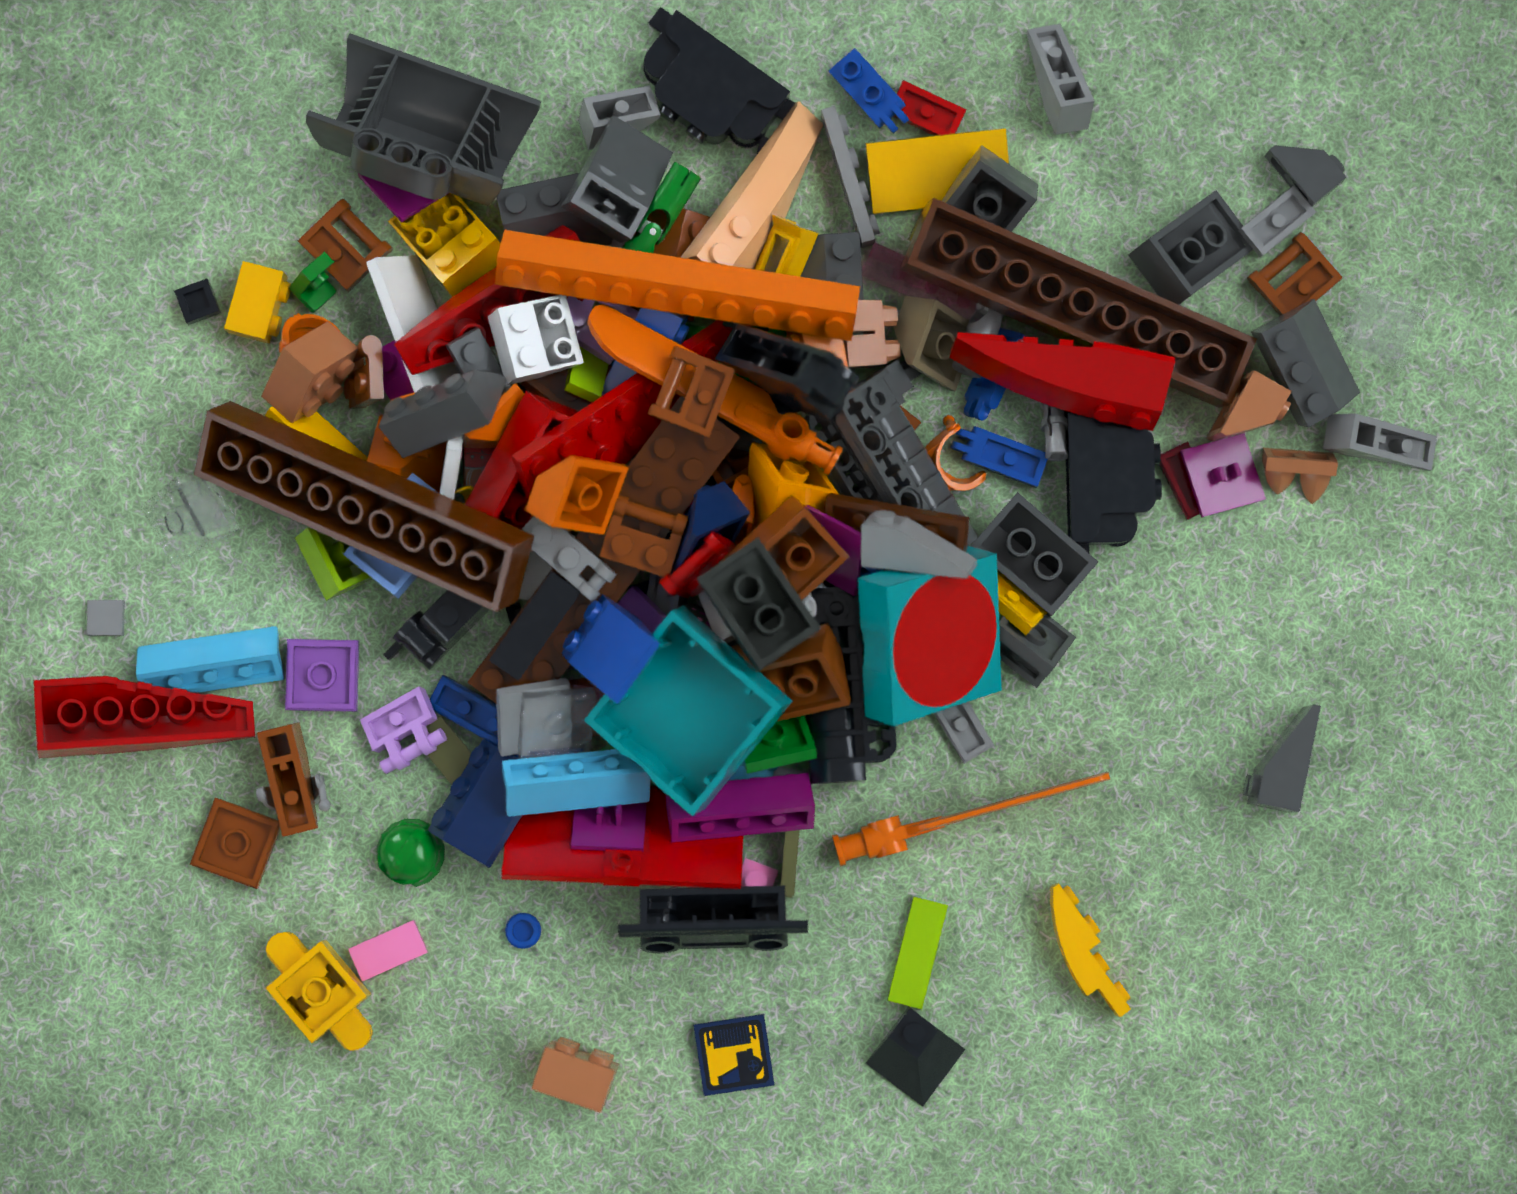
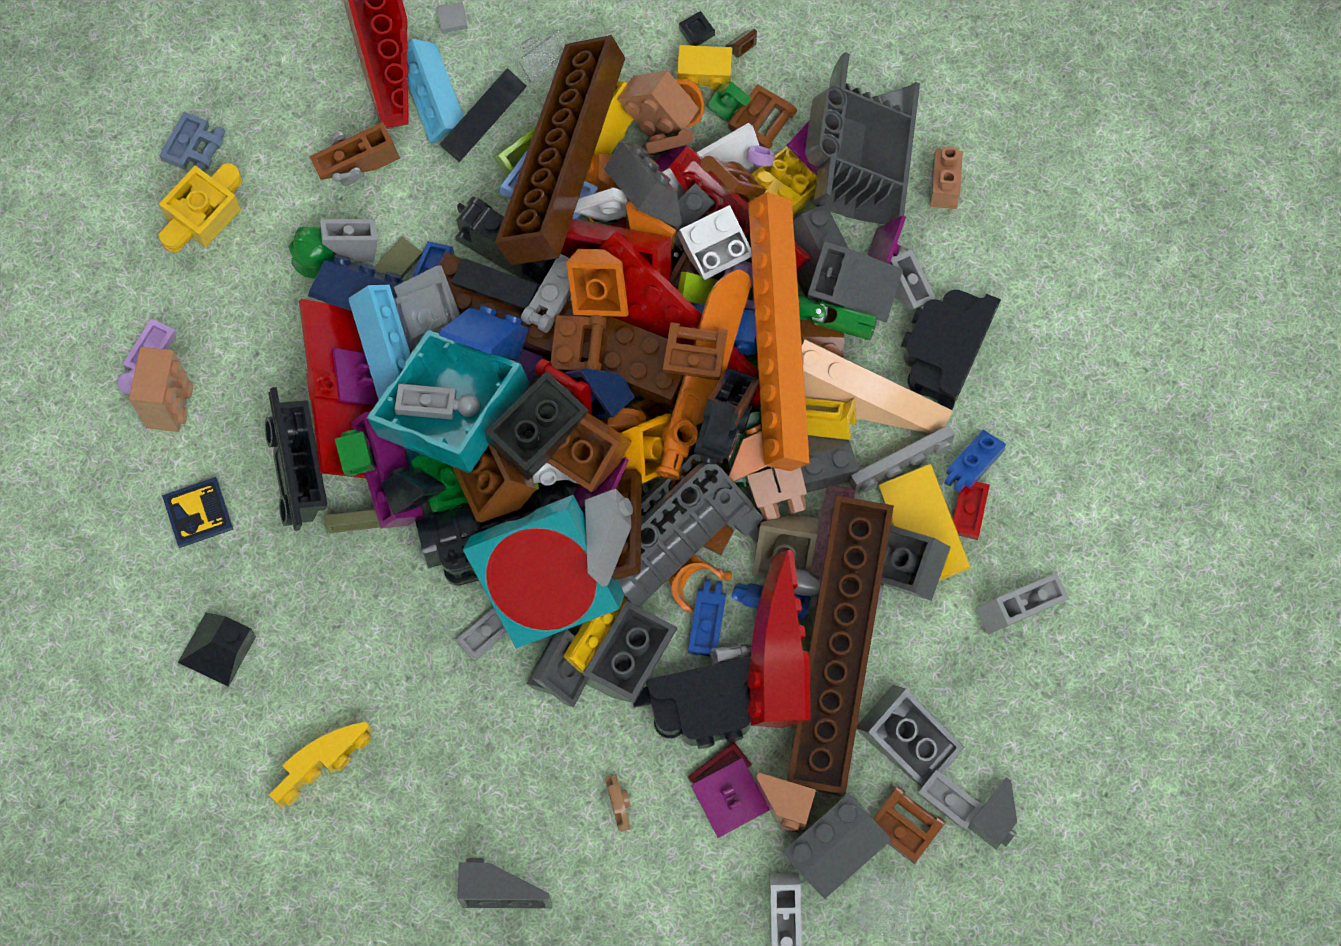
camera: 80 degrees right, 15 degrees down
(212, 998) = (185, 140): none -> sand blue plate
(228, 247) = (743, 42): none -> reddish brown slope
(236, 843) = (301, 132): dark orange plate -> none
(266, 601) = (483, 115): none -> black slope
(322, 675) = (435, 169): medium lavender plate -> none
(388, 950) = (239, 252): bright pink tile -> none
(399, 720) = (412, 222): lavender plate -> none
(409, 802) = (350, 237): none -> light grey slope
(412, 257) = (760, 156): none -> lavender tile
(457, 292) = (733, 177): none -> dark orange plate
(486, 31) = (946, 178): none -> nougat hips
(509, 1091) = (153, 336): none -> lavender plate
(523, 930) = (269, 342): blue tile -> none
(564, 131) = (885, 240): none -> magenta piece
(687, 729) = (433, 402): none -> light grey plate
(725, 841) = (354, 453): none -> green brick
(757, 874) = (337, 499): bright pink plate -> none
(786, 778) = (410, 489): none -> black slope
(889, 836) = (387, 592): orange piece -> none
(917, 953) = (298, 634): lime tile -> none
(1200, 605) = (619, 802): none -> medium nougat plate
(1313, 466) = (752, 870): nougat tile -> none

